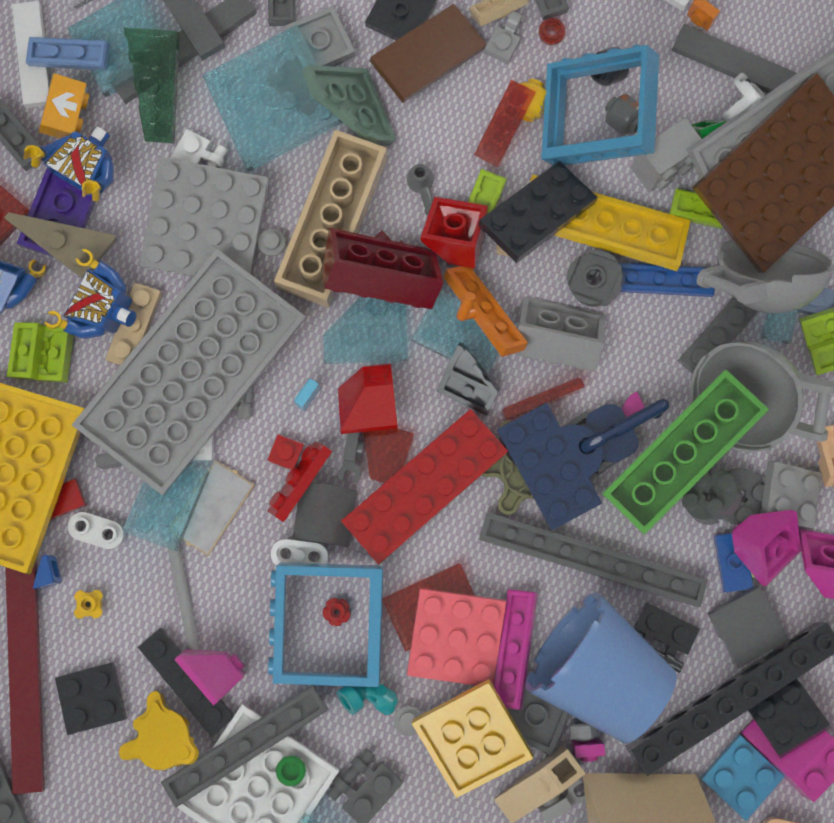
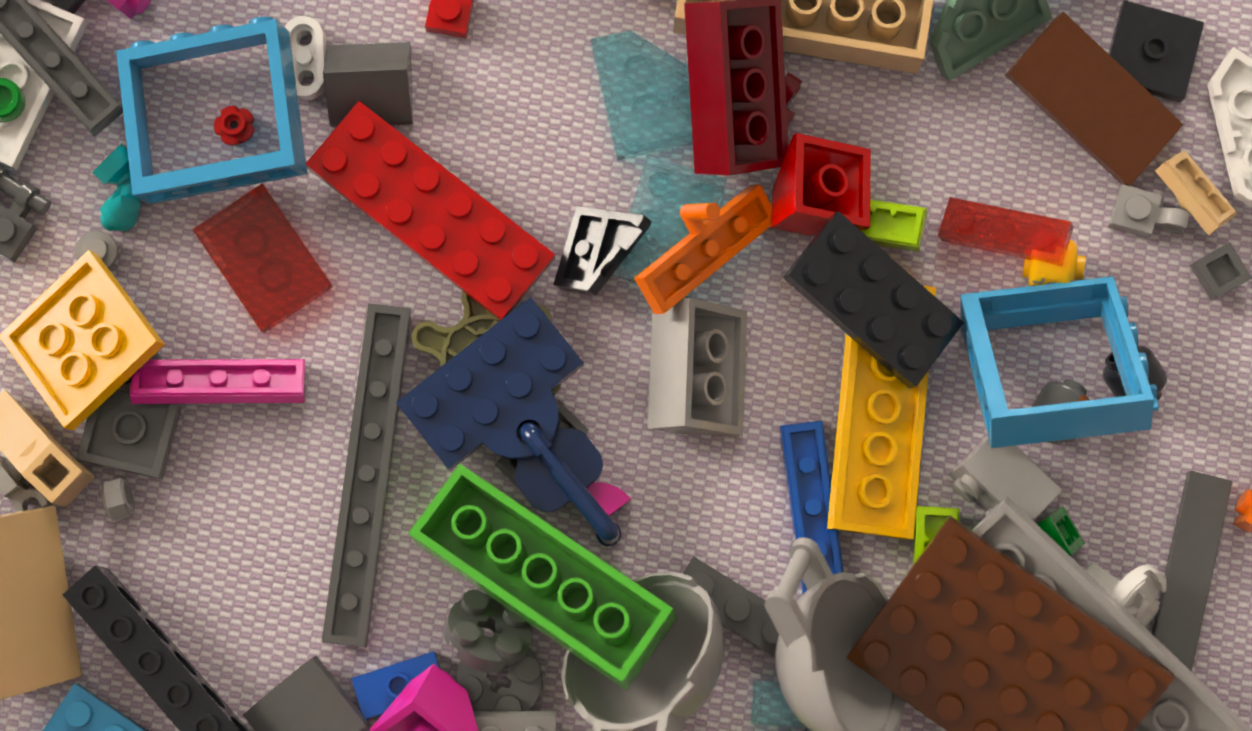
camera: 80 degrees right, 0 degrees up
(298, 480) = (409, 34): red plate -> none
(307, 394) = (537, 23): medium azure tile -> none
(353, 449) = (468, 102): dark grey plate -> none
(368, 401) = (540, 109): red slope -> none
(386, 452) = (479, 150): clear red wing -> none
(422, 184) = (888, 132): dark grey bar -> none
(455, 637) = (223, 295): coral plate -> none
(550, 396) = (592, 360): clear red tile -> none
(555, 25) = (1182, 273): clear red plate -> none
(588, 750) = (90, 510): dark pink plate -> none
(589, 264) = (786, 430): dark grey plate -> none
(602, 671) = (195, 502): medium blue cone -> none
(669, 630) = (284, 599): black plate -> none

